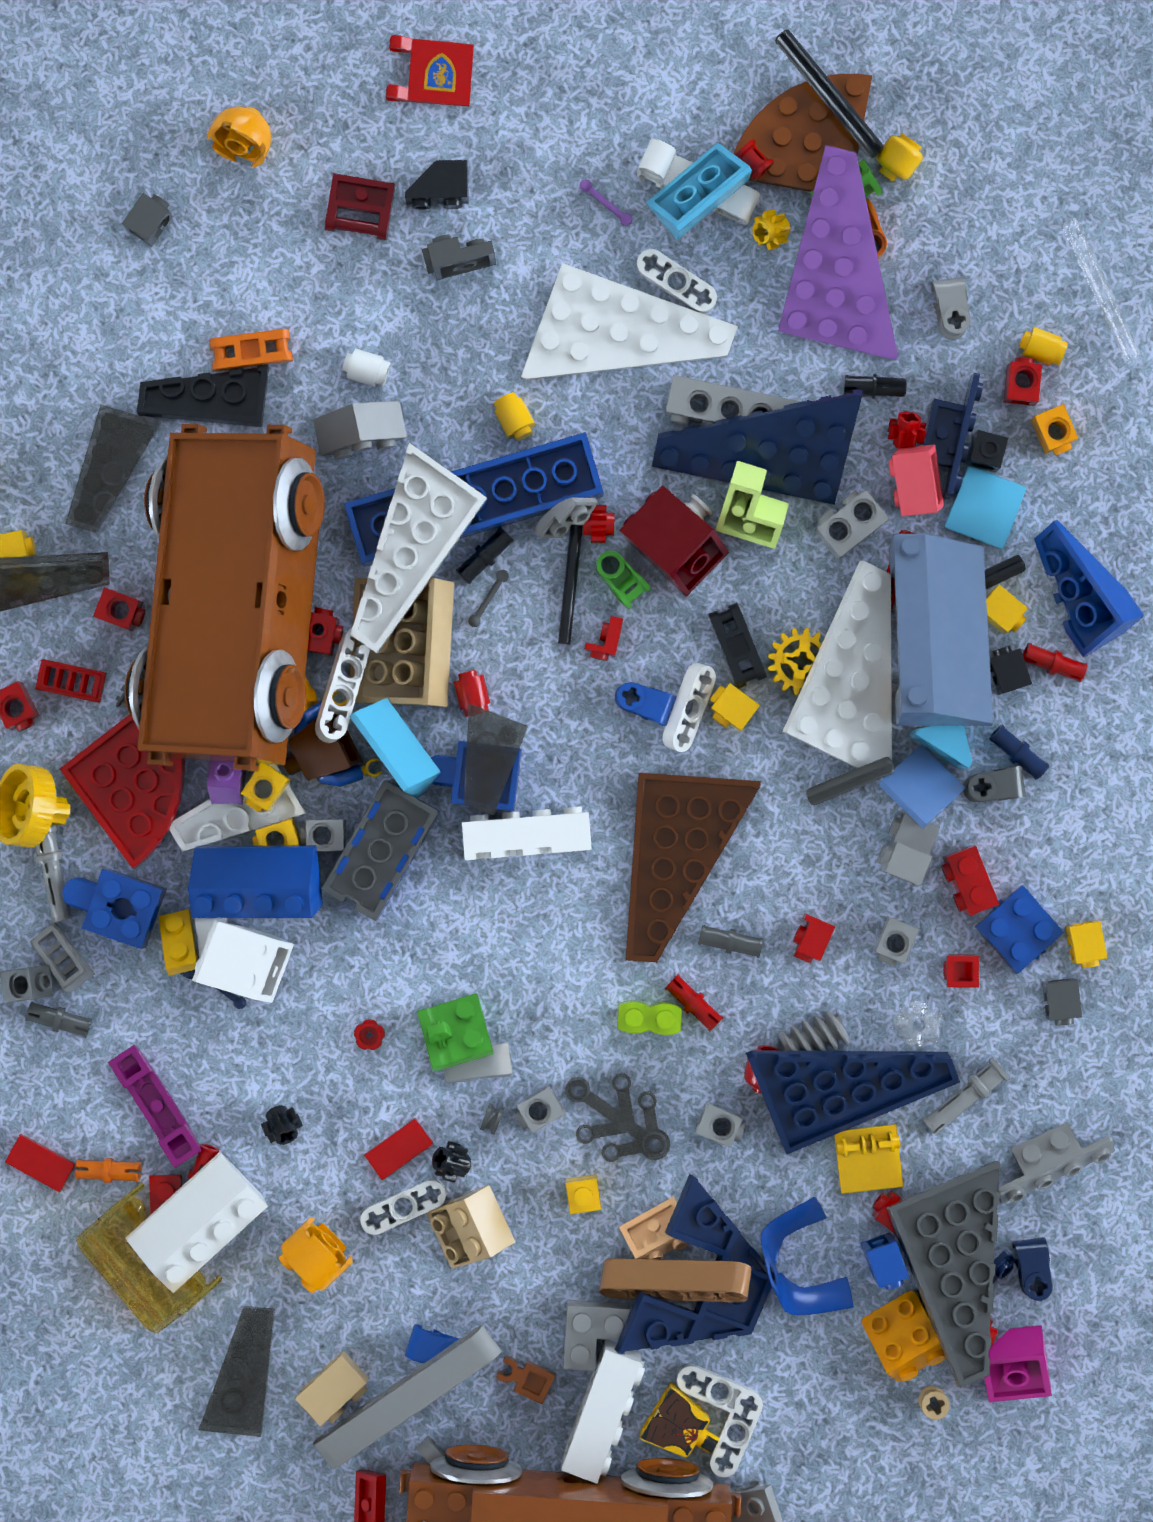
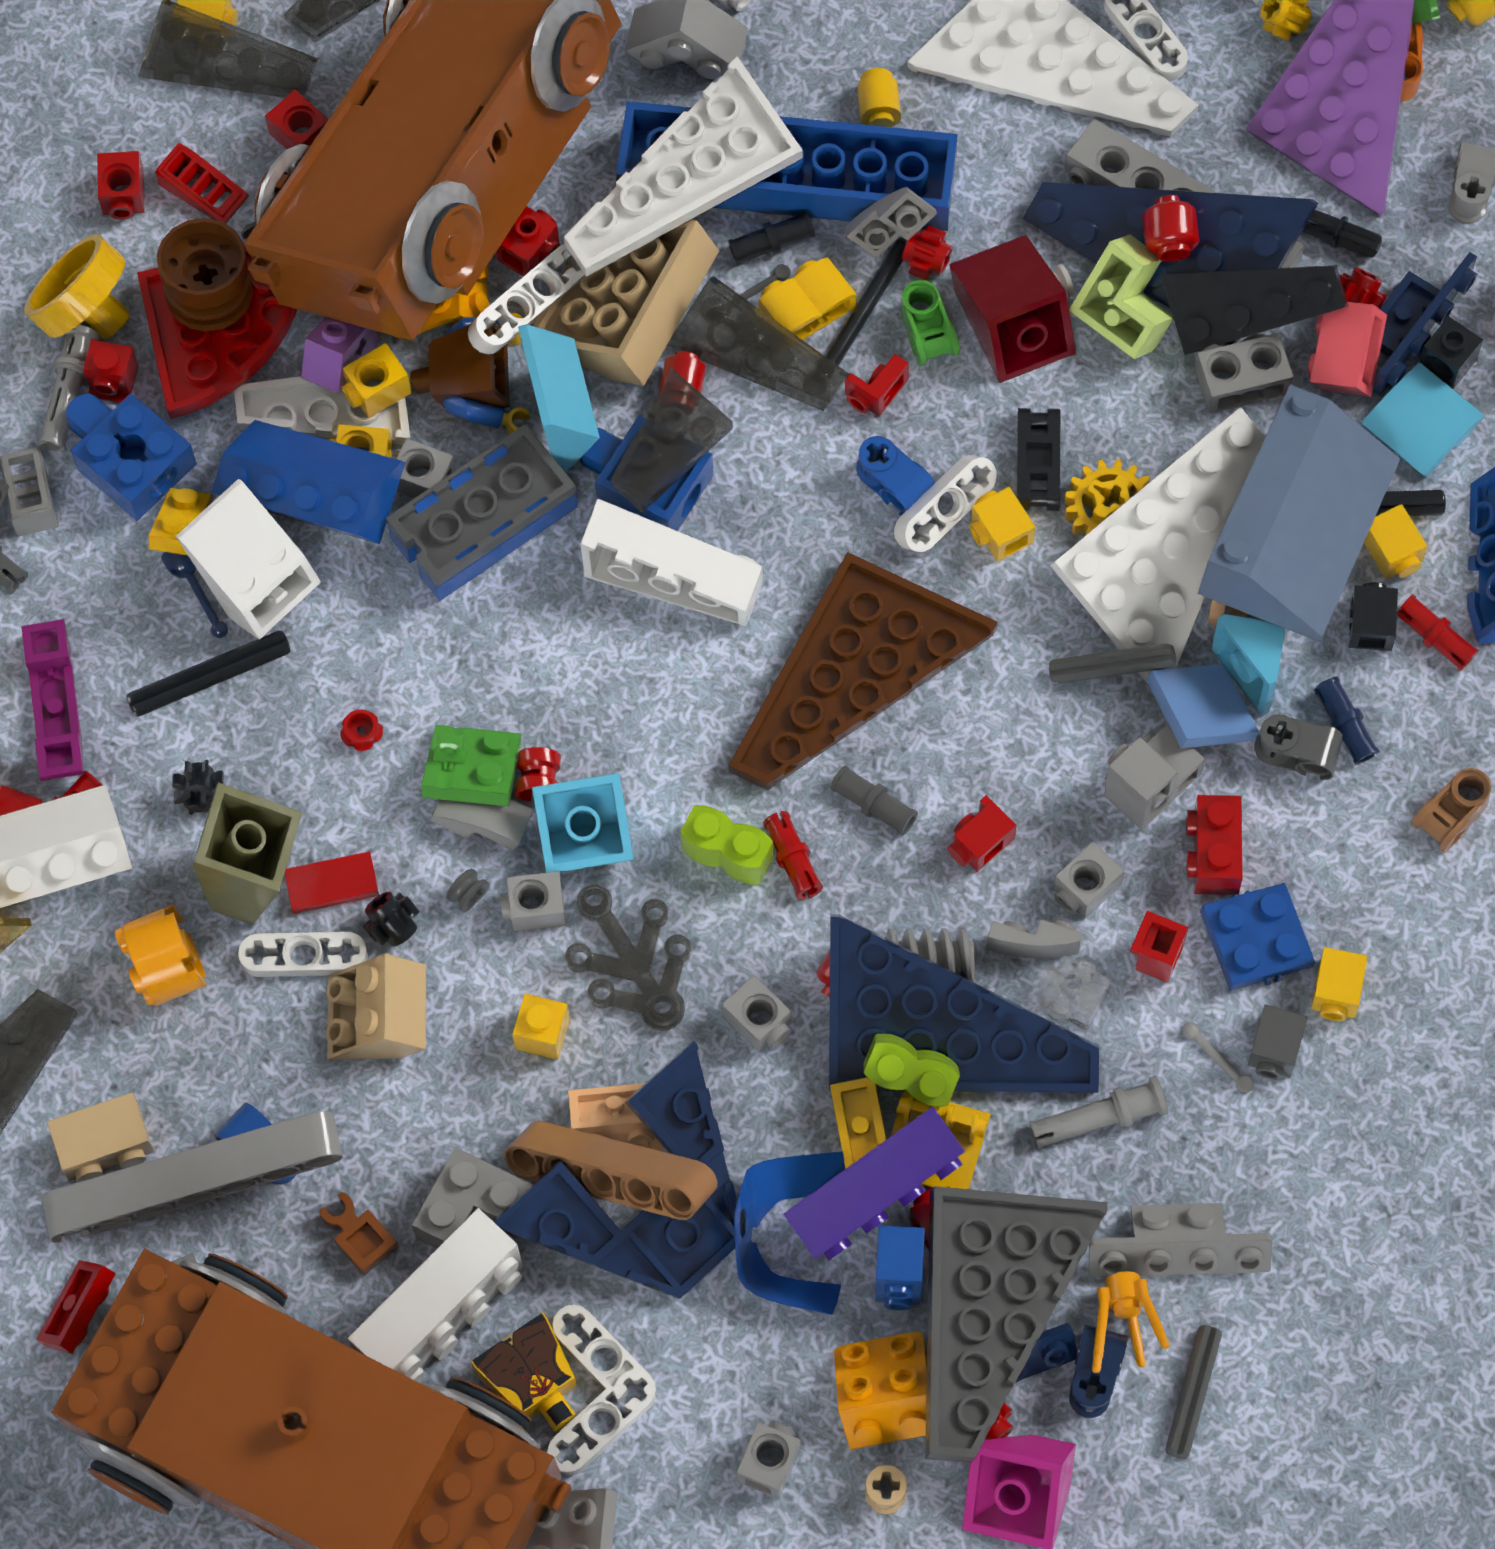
camera: 25 degrees right, 20 degrees down
(77, 851) = (110, 370): none -> red brick
(95, 765) = (205, 274): none -> reddish brown wheel
(247, 1038) = (208, 673): none -> black axle
(342, 1172) = (244, 852): none -> olive slope
(500, 1012) = (537, 768): none -> red wheel
(504, 645) = (752, 345): none -> clear smoke wing
(530, 595) = (809, 299): none -> yellow brick
(550, 1048) = (582, 823): none -> medium azure slope
(766, 450) = (1170, 228): none -> red head
(818, 1171) = (858, 1118): none -> yellow plate
(838, 478) = (1245, 302): none -> black wing
(838, 1129) = (923, 1073): none -> lime brick
(849, 1218) = (874, 1183): none -> dark purple brick
(859, 1426) = (765, 1478): none -> light grey brick
(885, 993) = (1051, 940): none -> light grey slope
(1035, 1214) = (1125, 1296): none -> light orange plant
(1048, 1032) = (1243, 1082): none -> light grey hinge
(1098, 1253) = (1193, 1392): none -> dark grey axle
(1114, 789) = (1450, 815): none -> medium nougat piece

